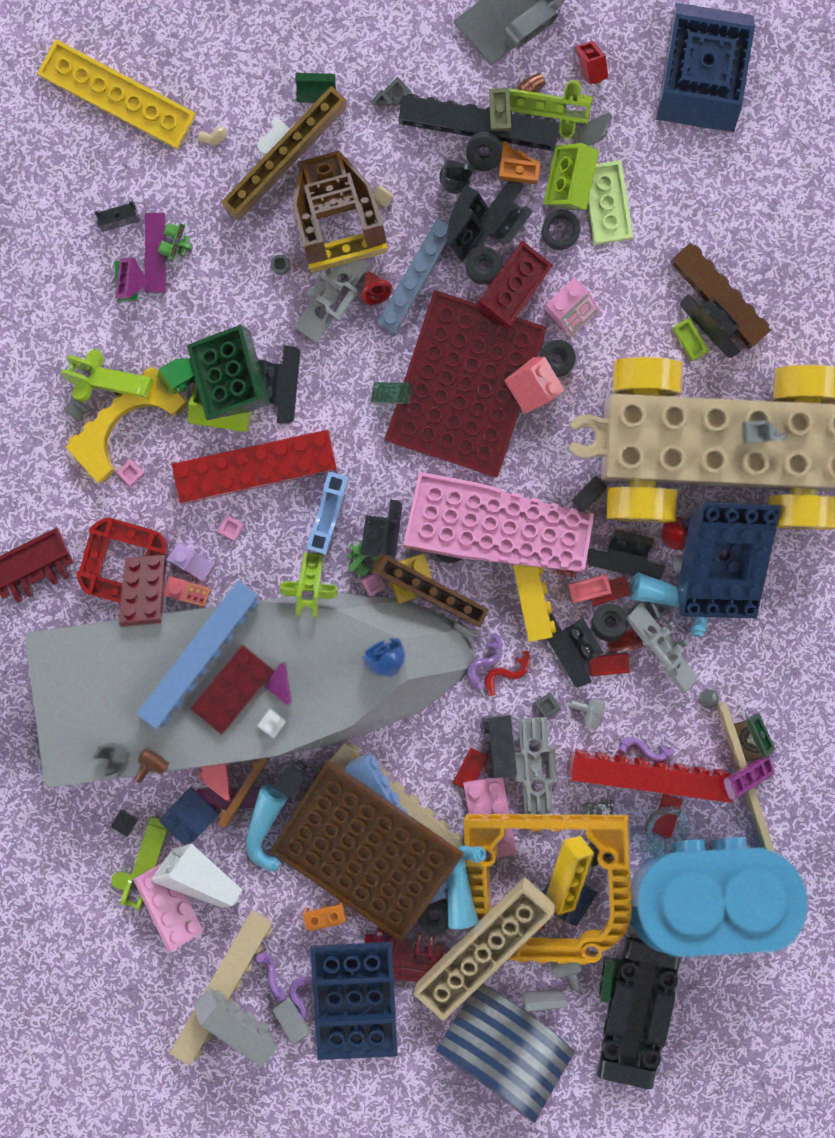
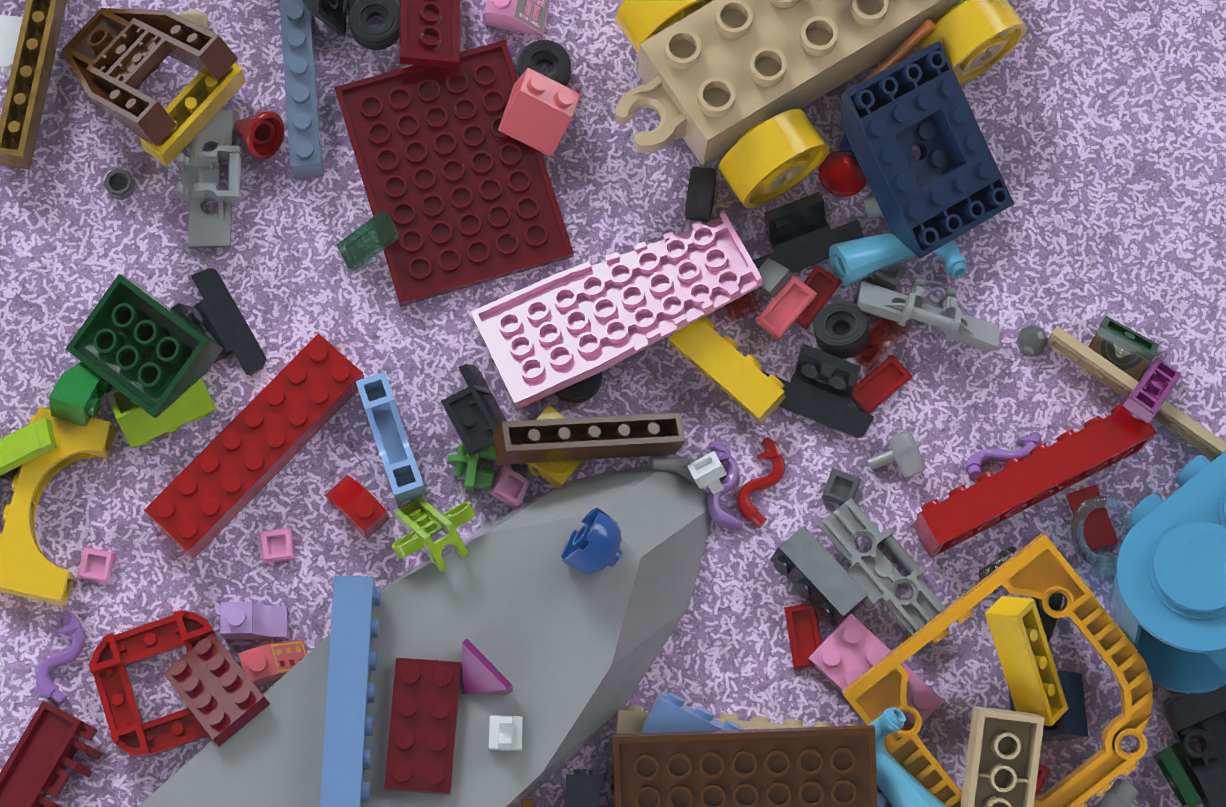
camera: 35 degrees left, 15 degrees down
(97, 498) = (44, 684): none -> medium lavender animal
(286, 536) = (358, 506): none -> red slope
(481, 650) = (707, 472): none -> white tile
(594, 567) = (773, 277): none -> dark grey tile
(773, 493) = (906, 47): none -> orange bar

